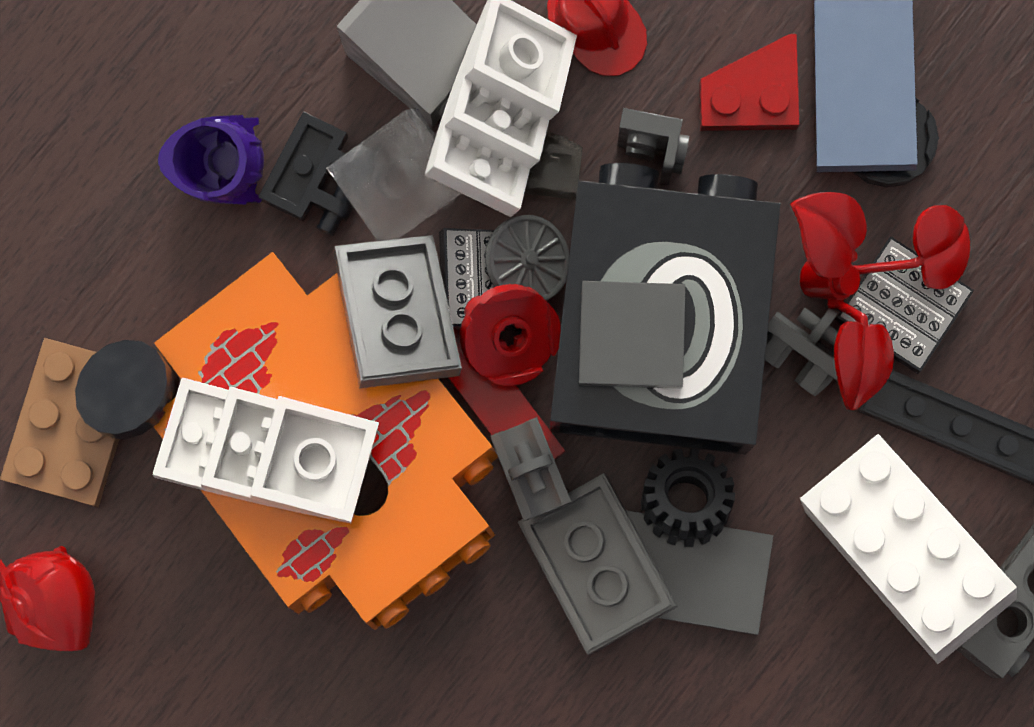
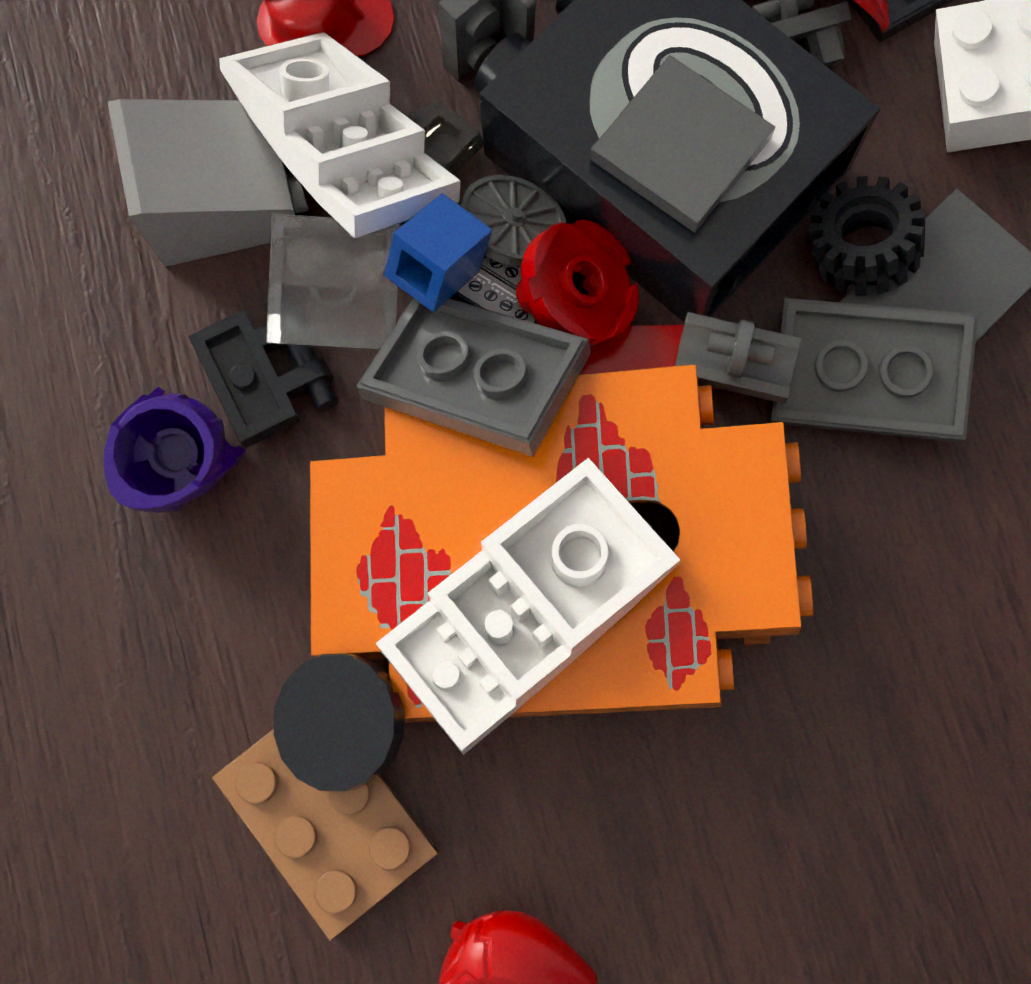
camera: 55 degrees left, 5 degrees down
(457, 232) = (437, 252): none -> blue brick

